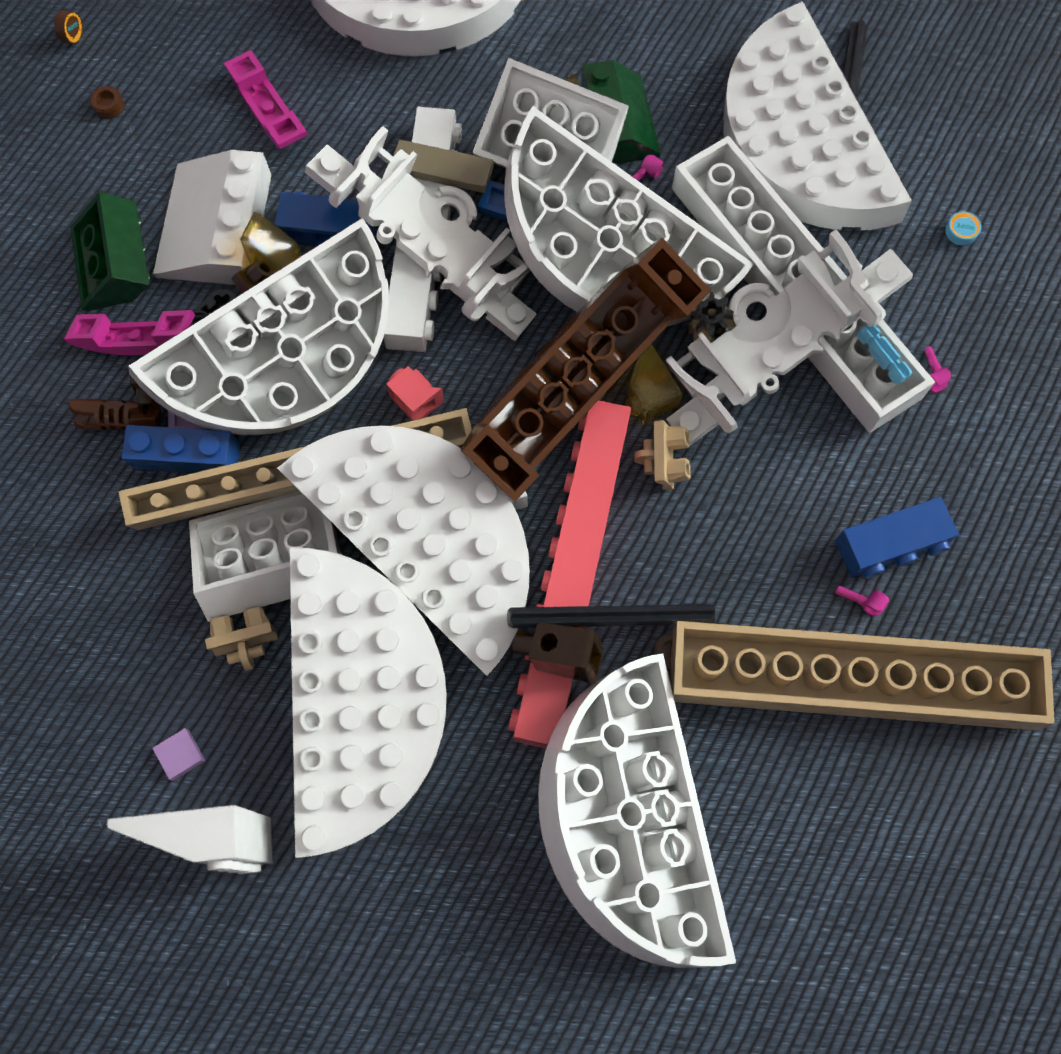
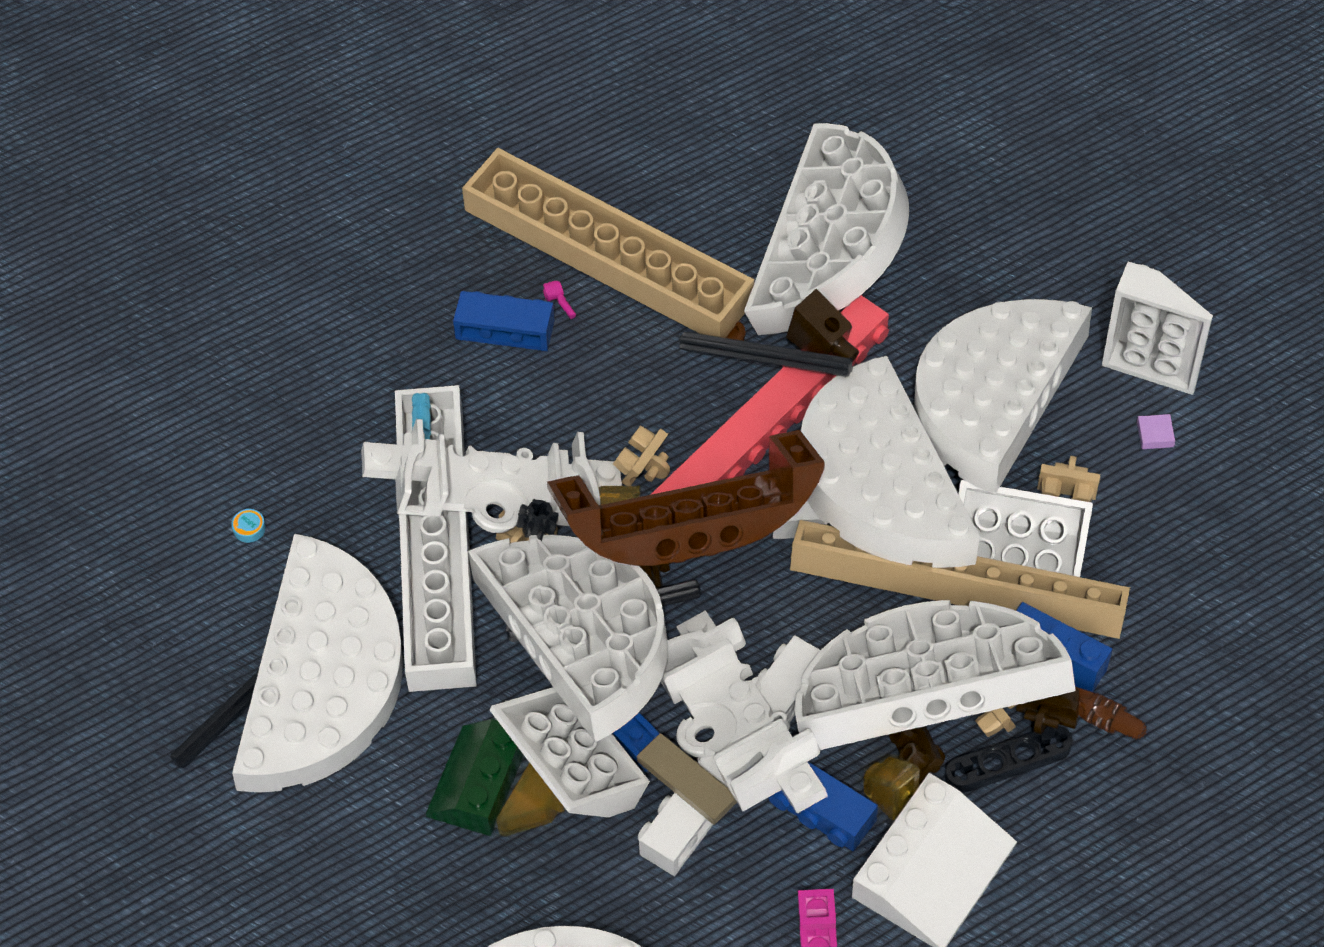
camera: 150 degrees left, 15 degrees down
(98, 334) = (1058, 775): dark pink slope -> none
(109, 253) = (1052, 872): dark green slope -> none
(414, 393) = (826, 604): coral window -> none
(651, 165) = (480, 712): dark pink hand -> none
(940, 375) = (372, 417): dark pink hand -> none

